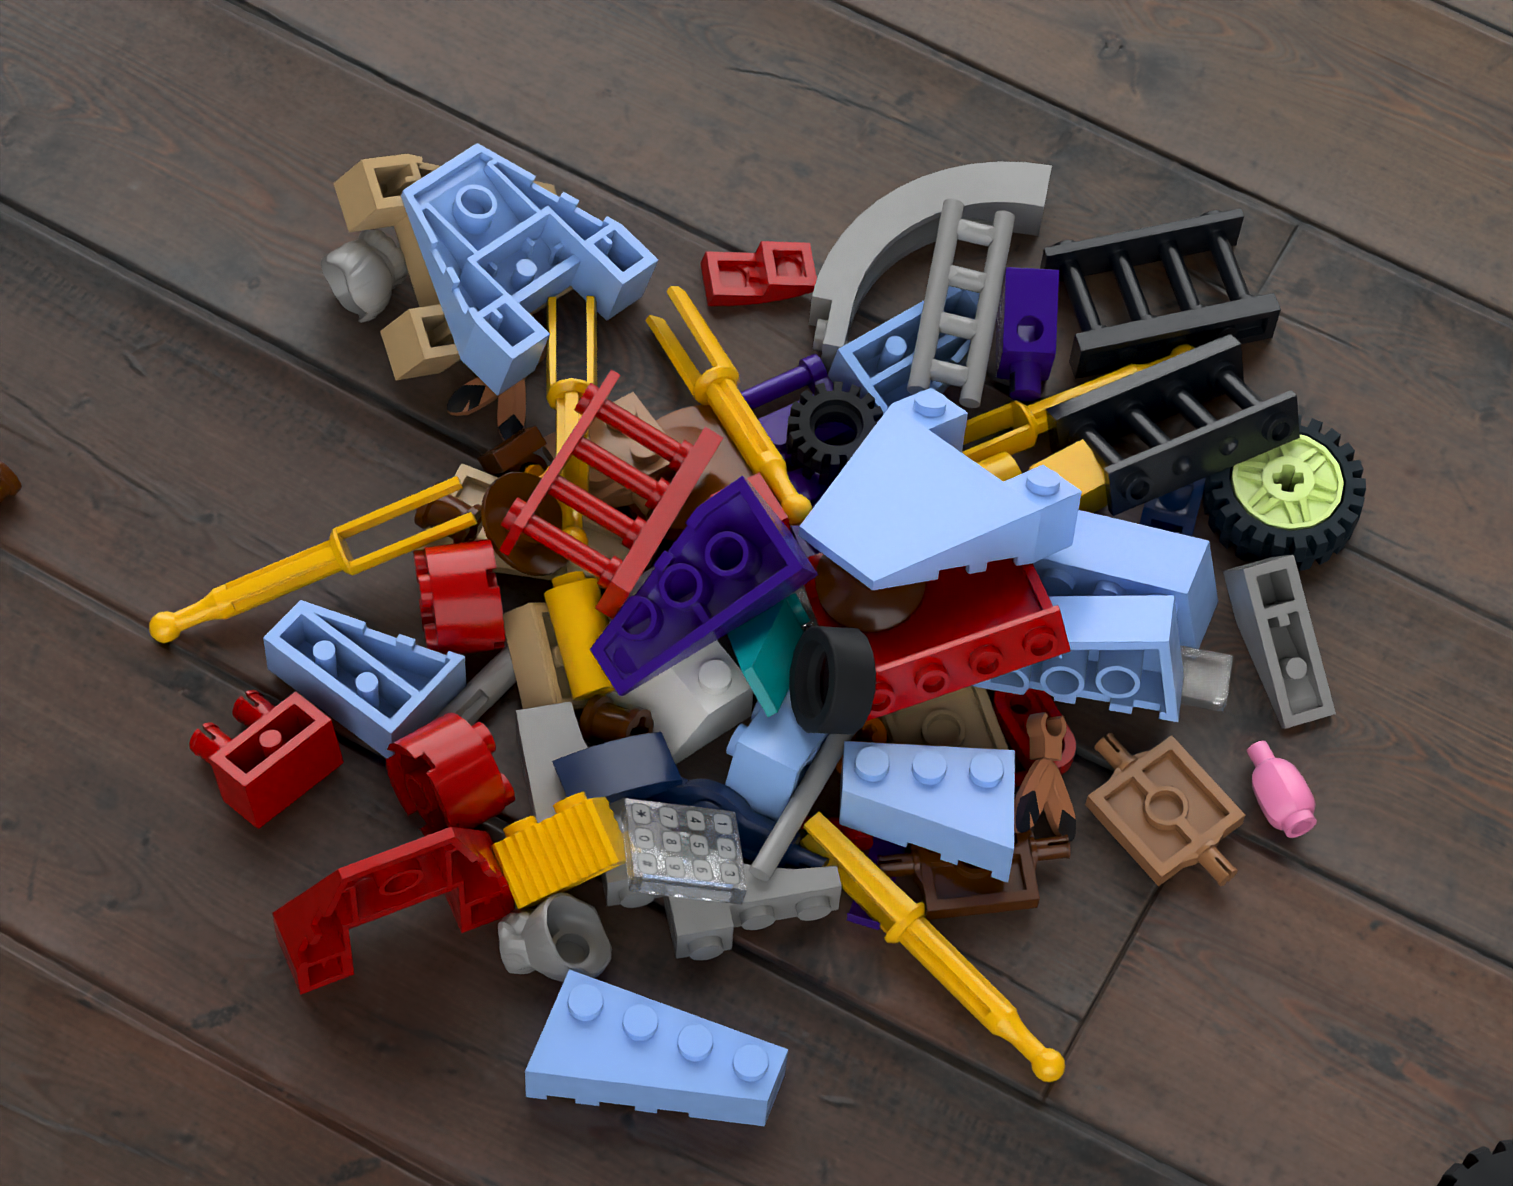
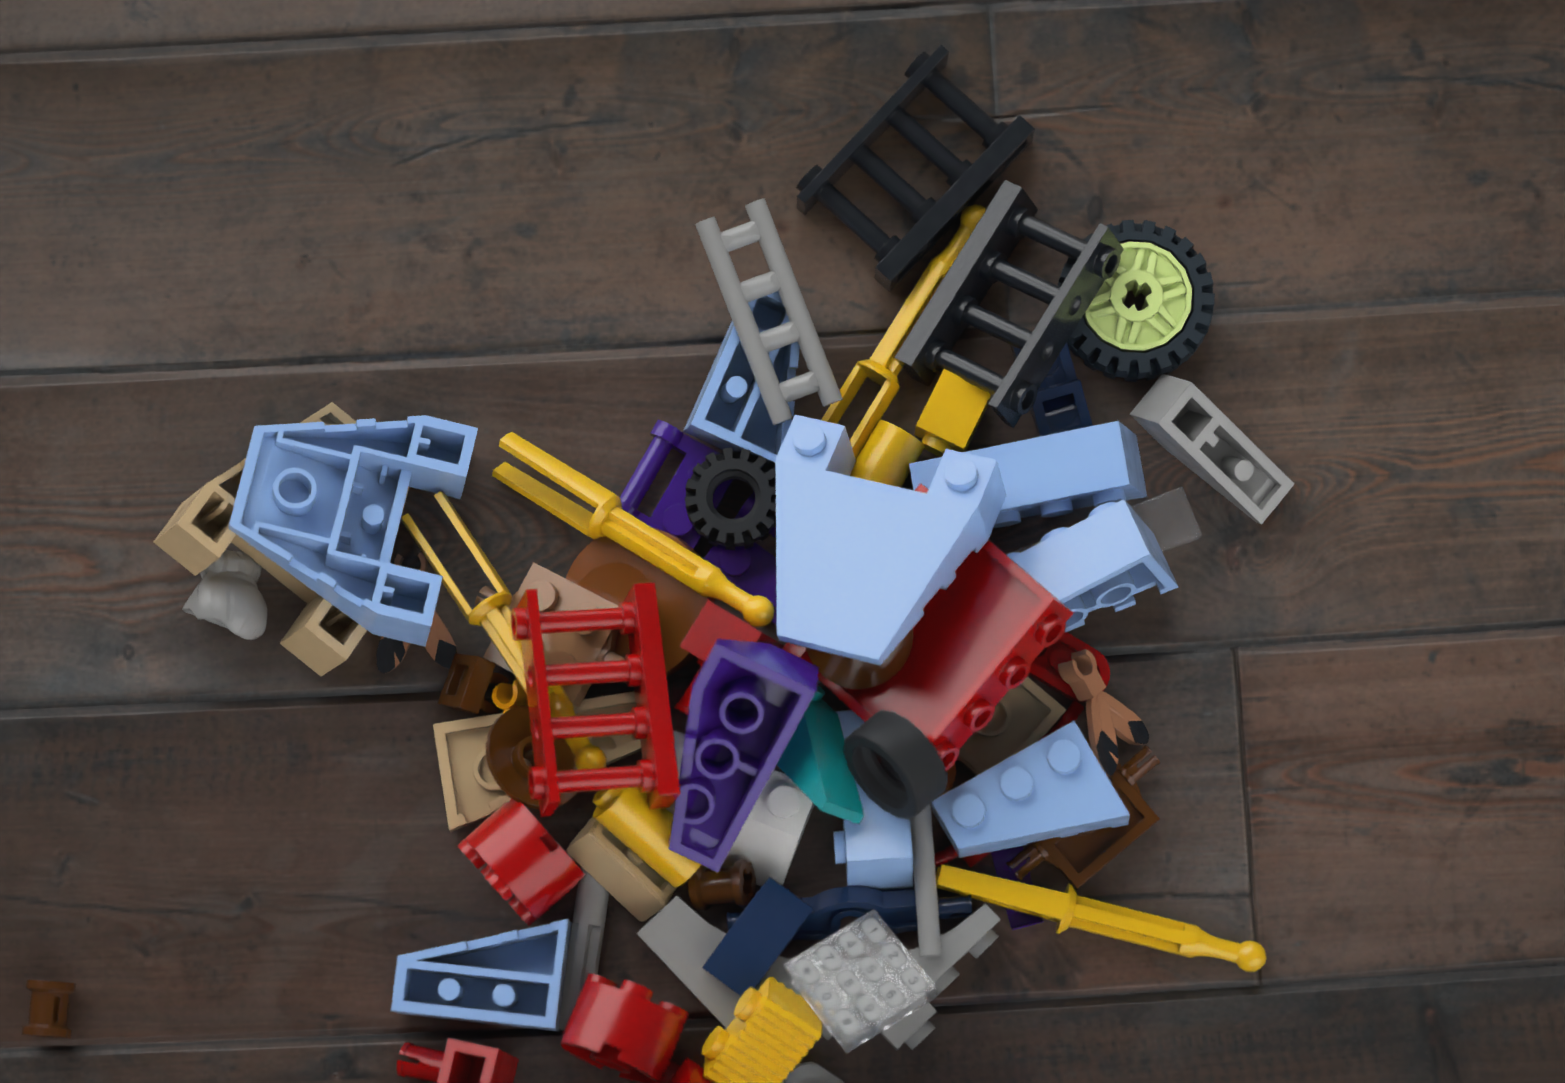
camera: 25 degrees left, 20 degrees up
(311, 565) = (375, 914): yellow piece -> none
(446, 509) = (463, 789): reddish brown bush -> none
(768, 275) = (560, 366): red slope -> none
(909, 221) = (672, 202): light grey arch -> none
(1027, 330) = (827, 267): dark purple torso -> none
(1165, 810) = (1210, 668): medium nougat plate -> none
(1281, 792) = (1294, 590): bright pink plant -> none

